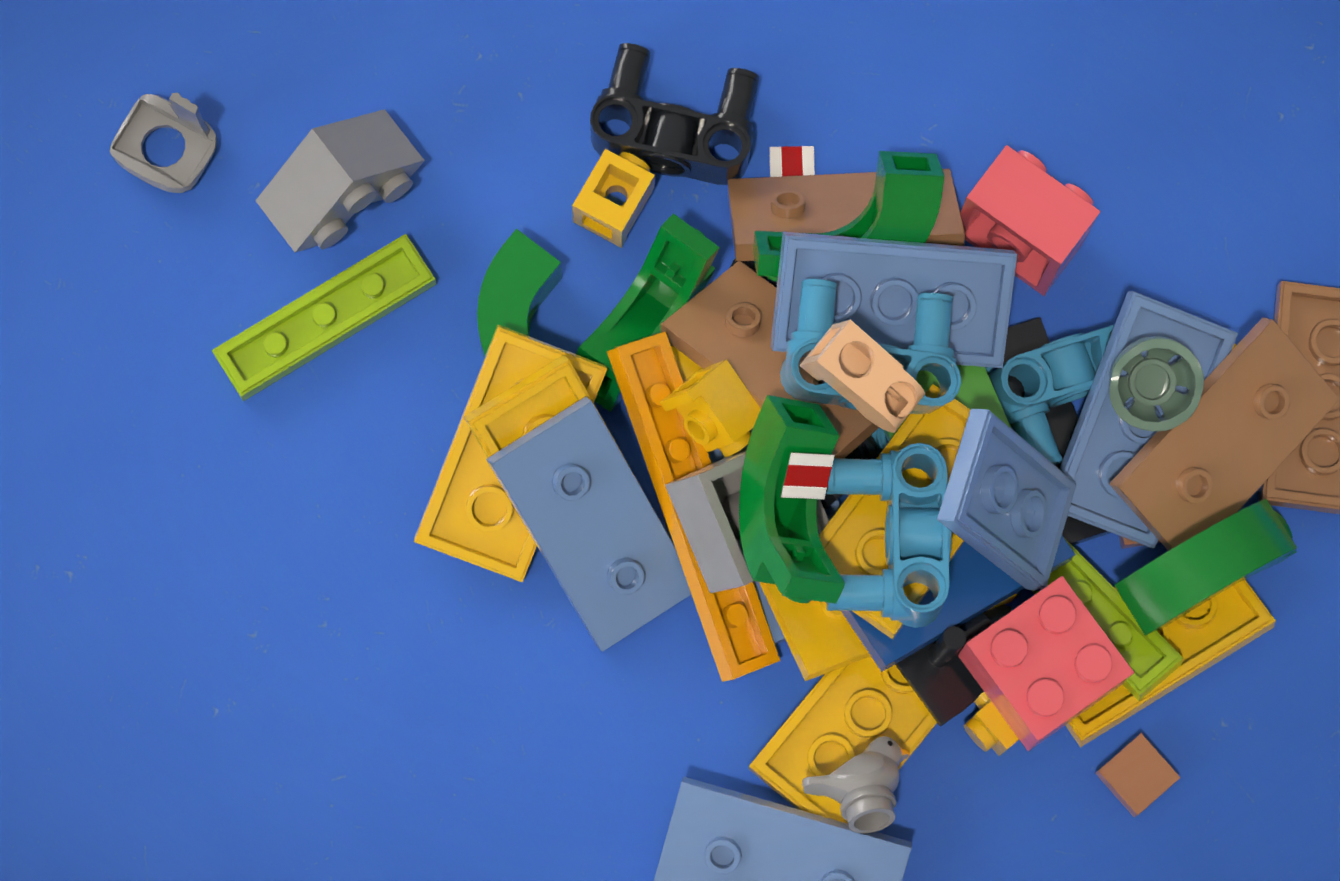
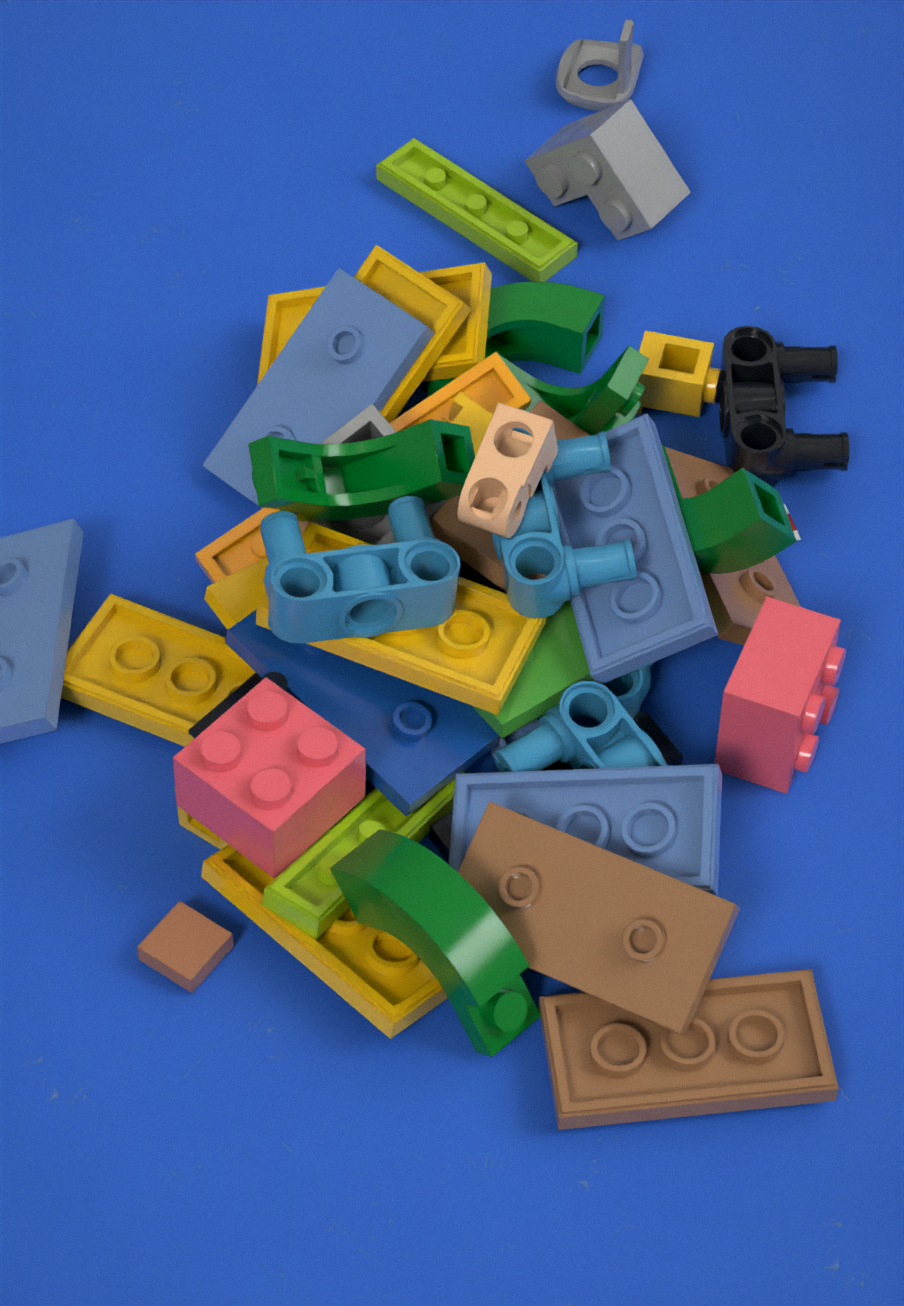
camera: 80 degrees right, 25 degrees down
(807, 475) = (393, 472): sticker -> none
(864, 786) = (104, 664): light grey animal -> none
(1006, 500) = (430, 670): medium blue tile -> none
(1154, 382) = (622, 808): sand green helmet -> none

